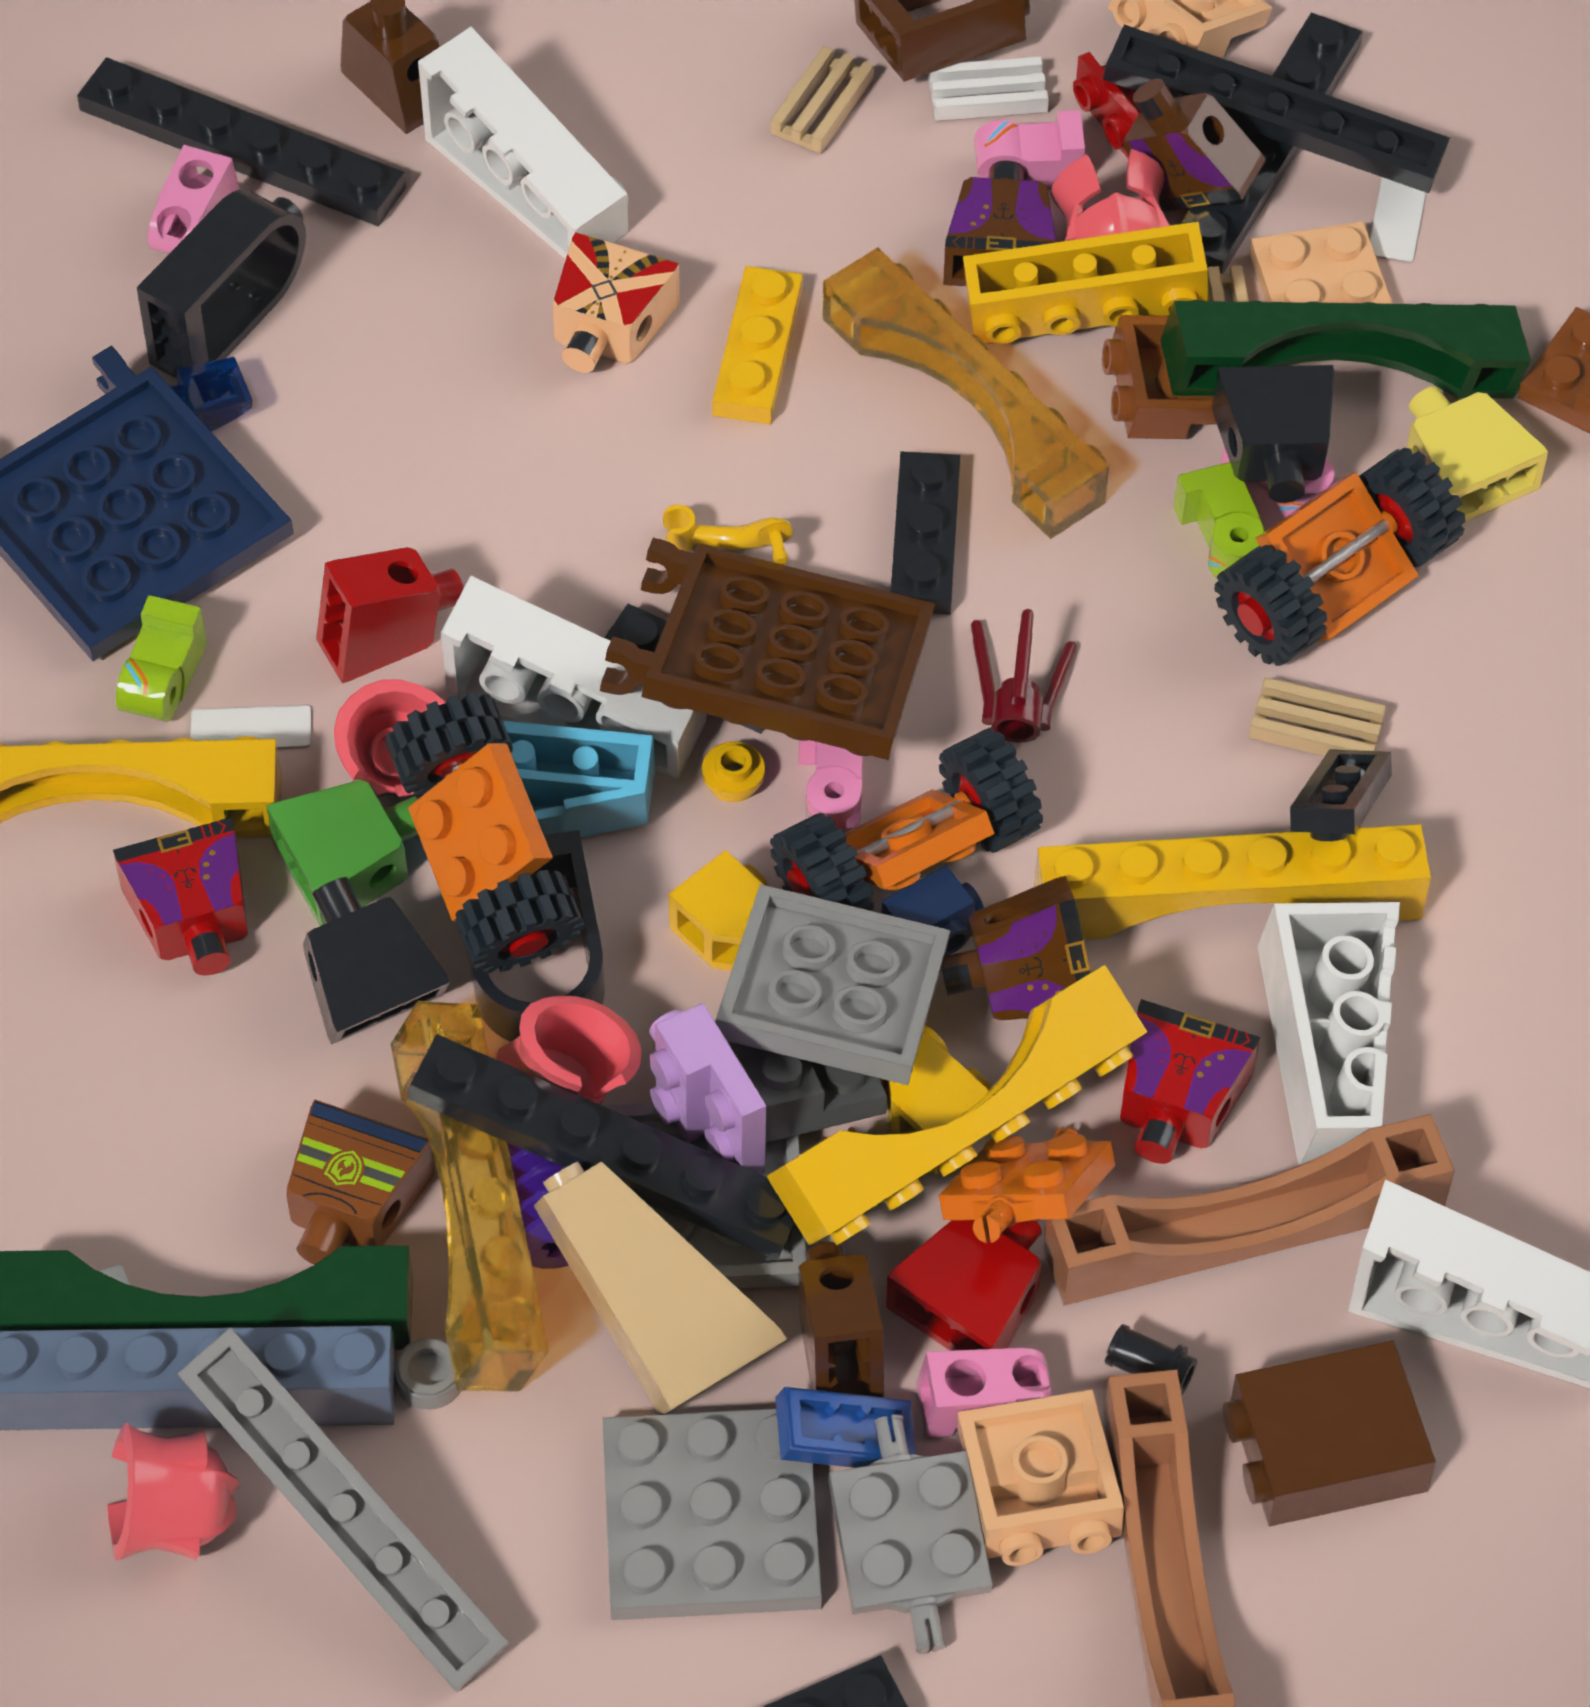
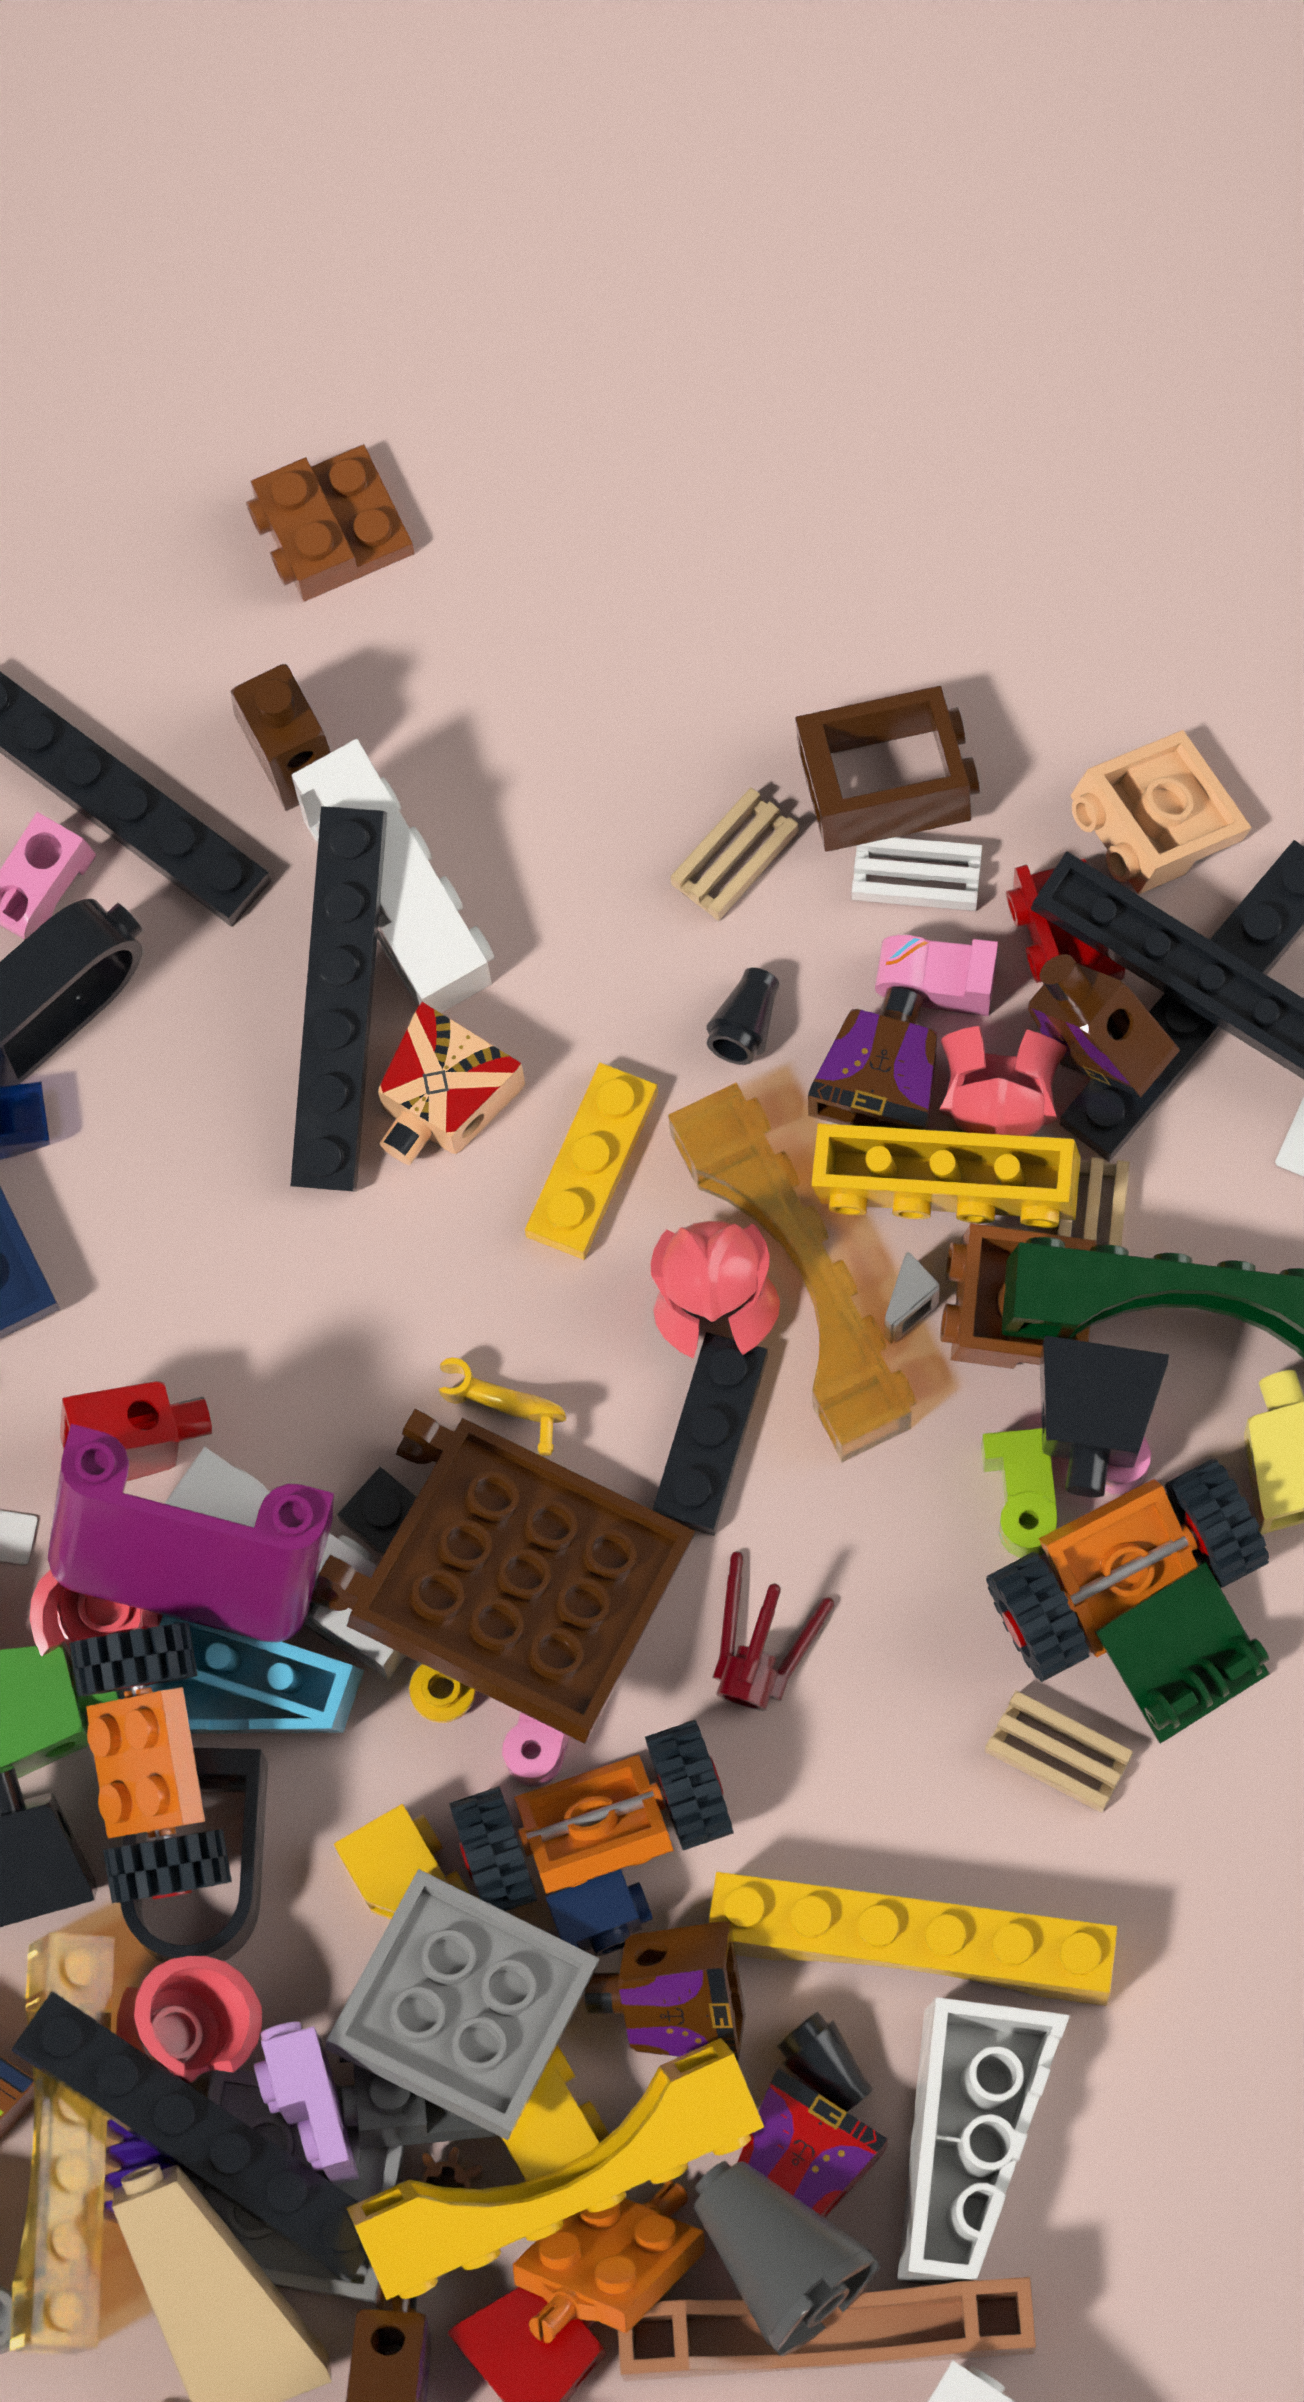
camera: 20 degrees right, 15 degrees up
(464, 631) = (180, 1559): none -> magenta windscreen
(499, 240) = (338, 998): none -> black plate
(866, 215) = (743, 1020): none -> black cone
(900, 386) = (710, 1273): none -> coral helmet
(1082, 390) = (912, 1299): none -> light grey slope
(1176, 989) = (824, 2062): none -> black cone
(1195, 1137) = (780, 2254): none -> dark grey cone
(1319, 266) = (1212, 1193): light nougat plate -> none
(1340, 793) = (1045, 1868): black plate -> none
(1409, 618) = (1183, 1652): none -> dark green hinge

